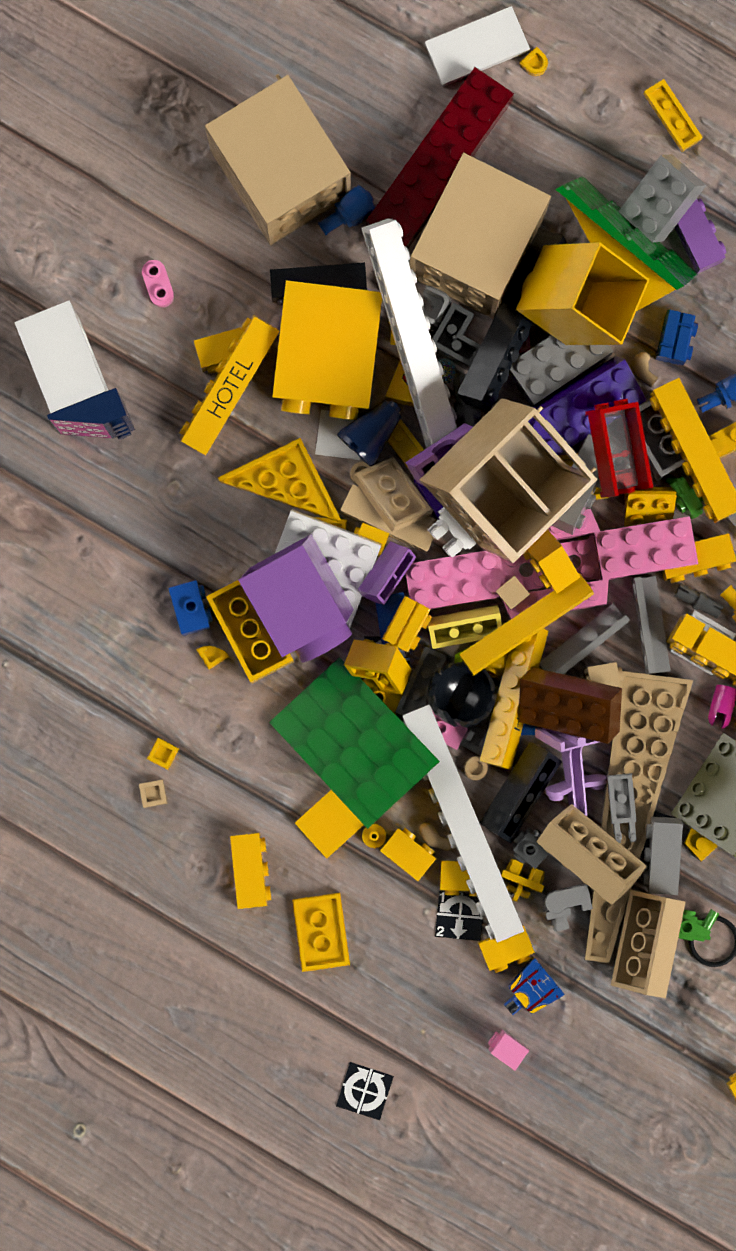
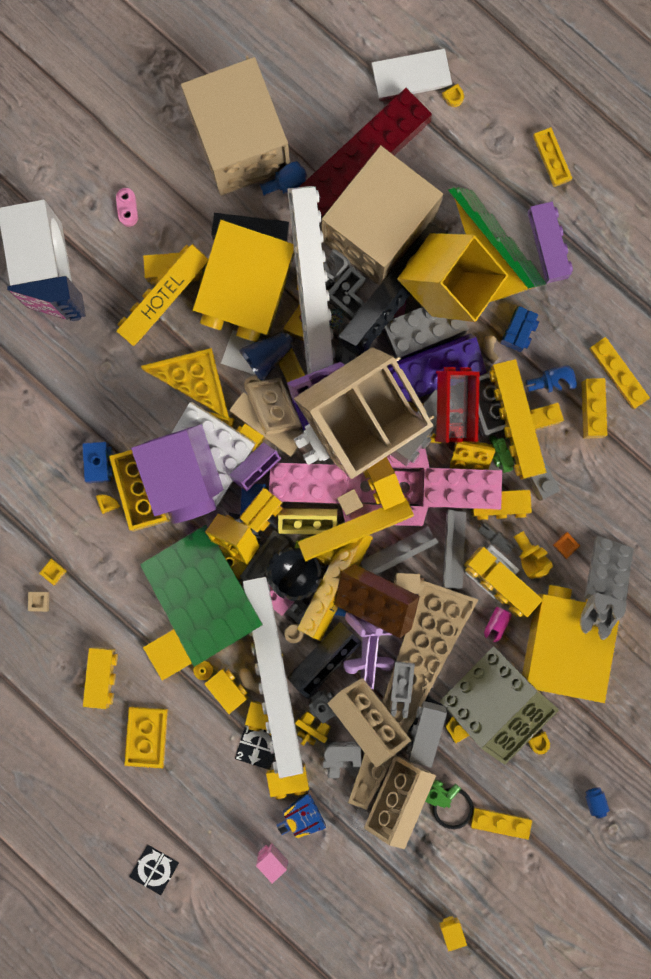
camera: 15 degrees right, 0 degrees up
(662, 198) = (531, 217): light grey brick -> none

